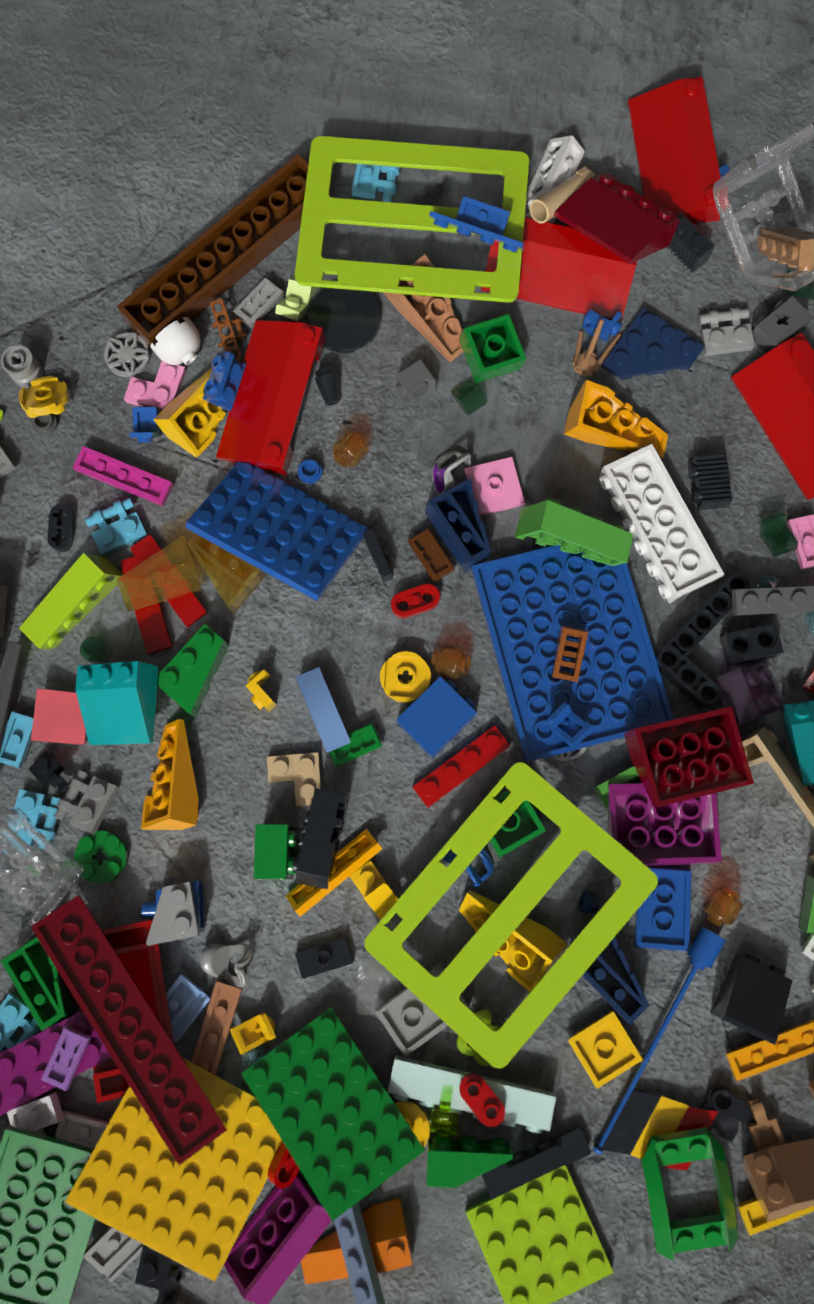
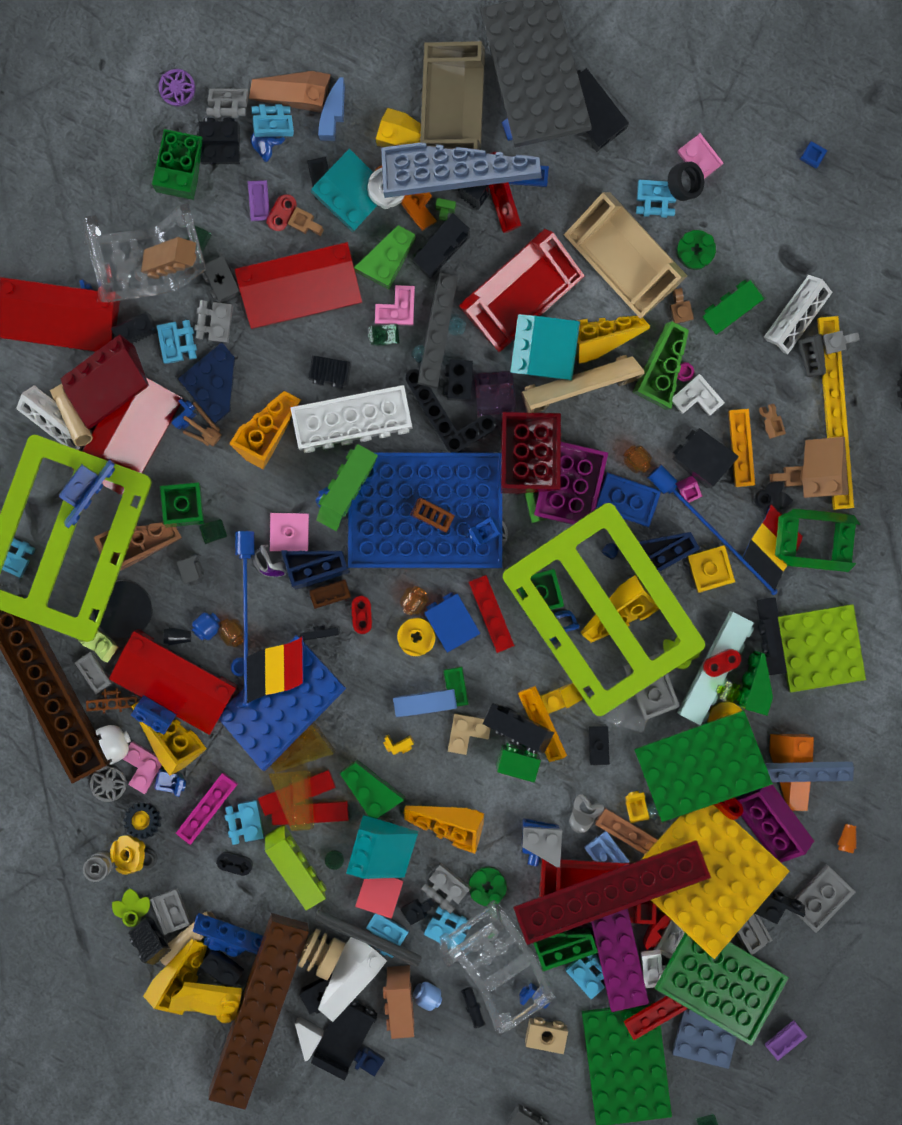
camera: 80 degrees left, 10 degrees up
(66, 1058) = (620, 939): medium lavender plate -> none
(82, 1103) = (652, 935): none -> red slope
(89, 403) = (142, 821): none -> black wheel
(319, 506) = (272, 668): none -> flag
(350, 416) = (206, 626): none -> blue head
(685, 287) = (170, 341): none -> medium azure plate
(702, 989) = (689, 489): none -> dark pink slope

